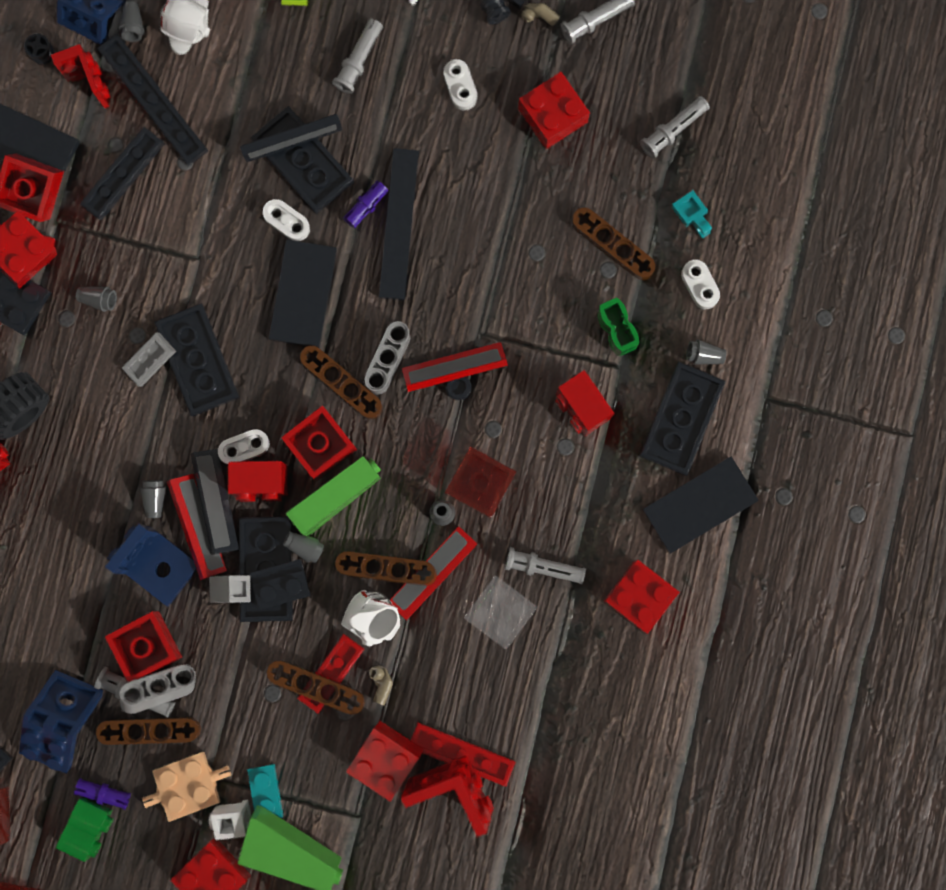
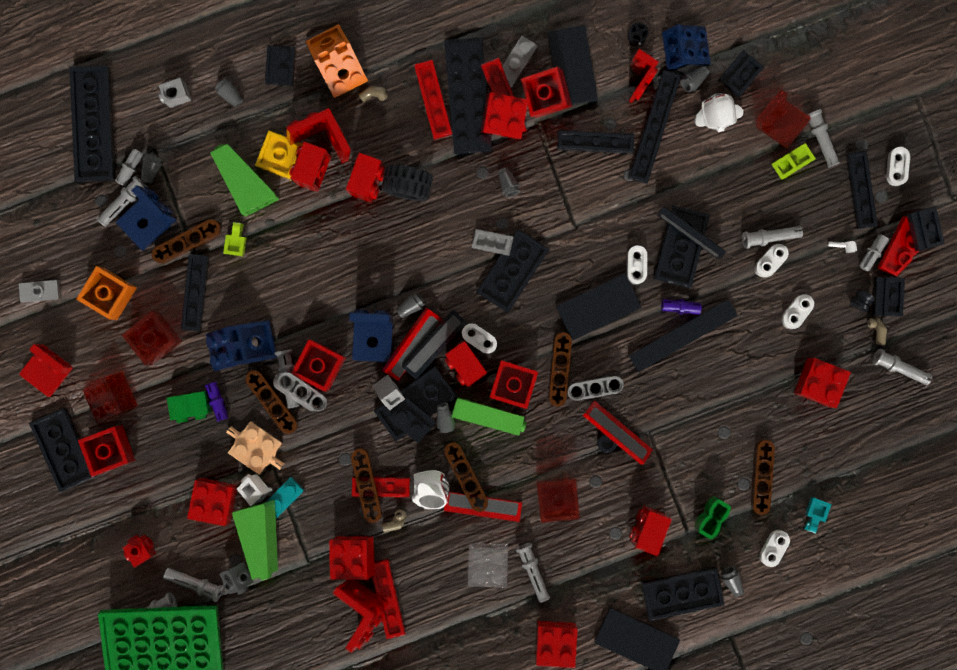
camera: 55 degrees right, 5 degrees up
(385, 73) = (772, 260): none -> white plate
(447, 518) = (523, 481): dark grey cone -> none
(666, 133) = (855, 462): light grey pin -> none

